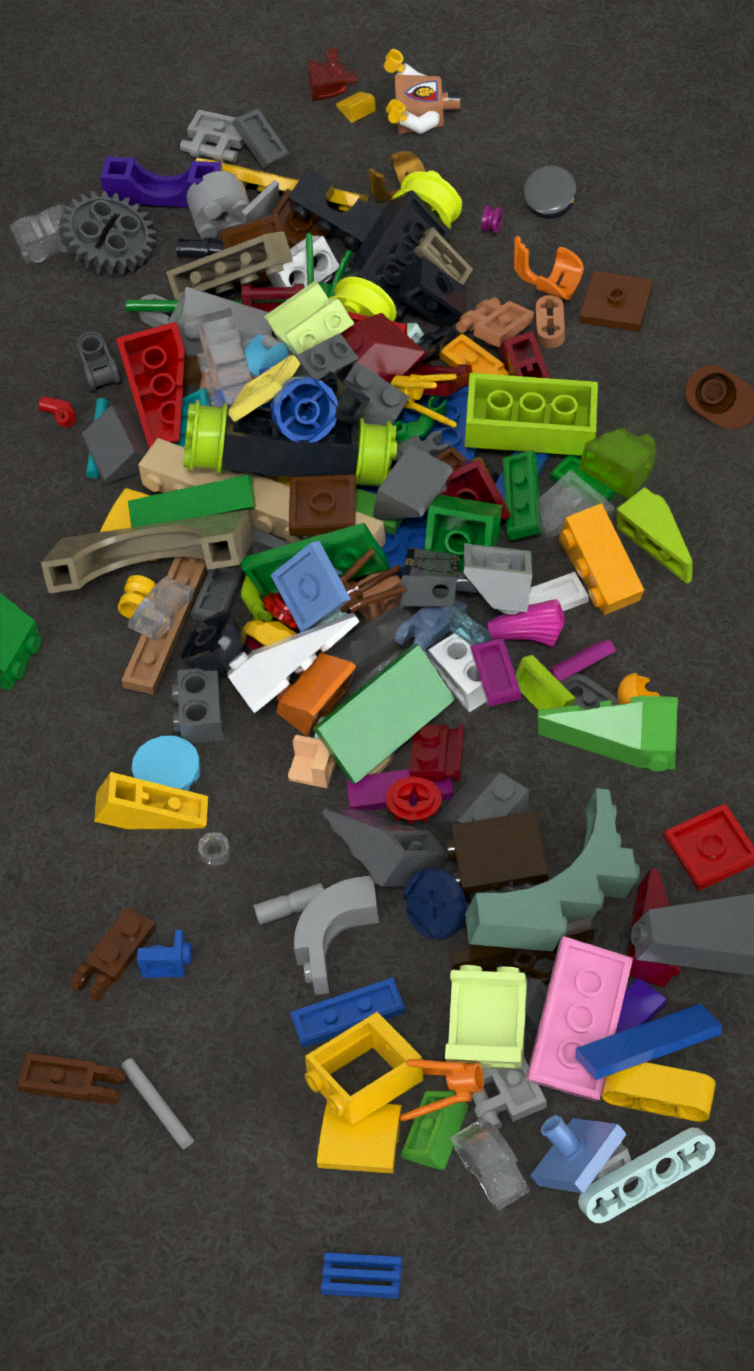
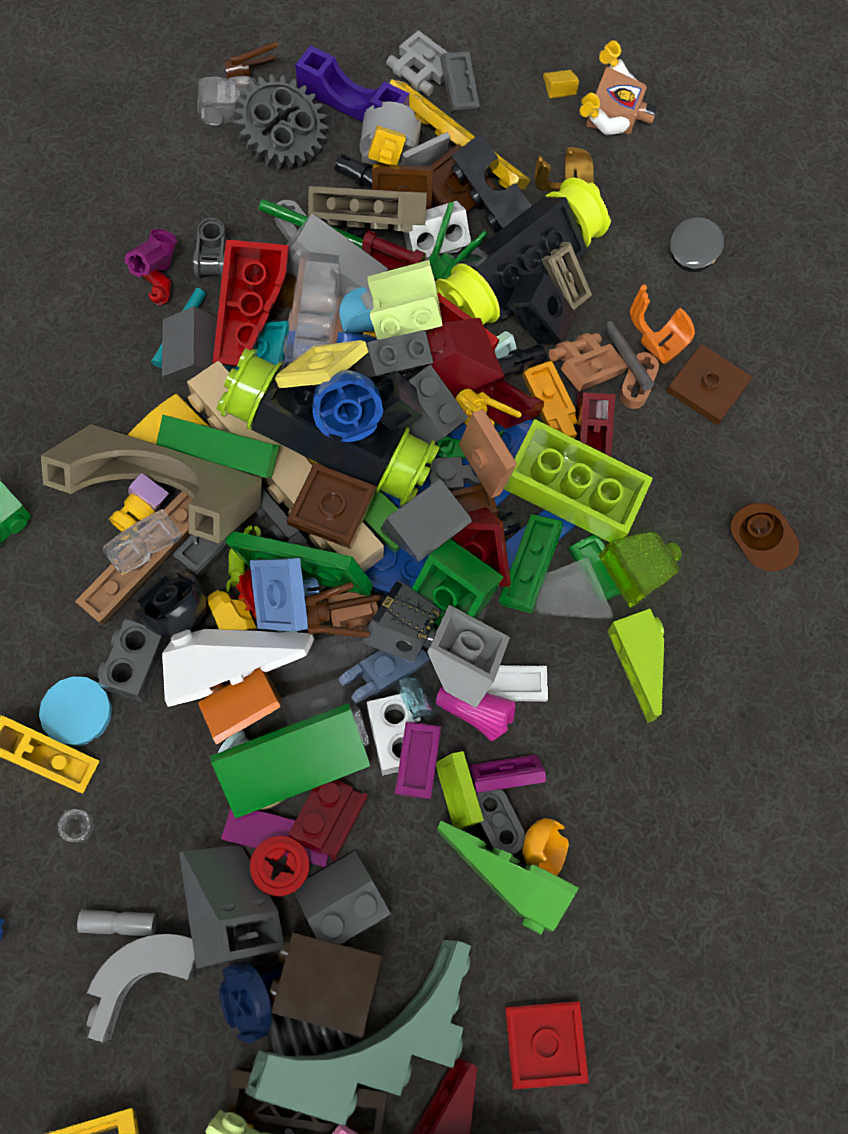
camera: 10 degrees right, 15 degrees up
(42, 199) = (240, 65): none -> reddish brown plant
(46, 381) = (152, 254): none -> magenta piece
(144, 567) = (148, 491): none -> lavender slope
(223, 211) = (386, 145): none -> yellow tile
(311, 762) = (202, 774): light nougat panel -> none
(328, 78) = (547, 44): clear red piece -> none
(340, 1013) = (115, 1075): blue tile -> none
(441, 415) = (487, 453): none -> nougat plate
(492, 219) = (631, 250): magenta bush -> none
(530, 303) = (628, 356): none -> flat silver bar
(600, 559) = (574, 672): light orange wedge -> none

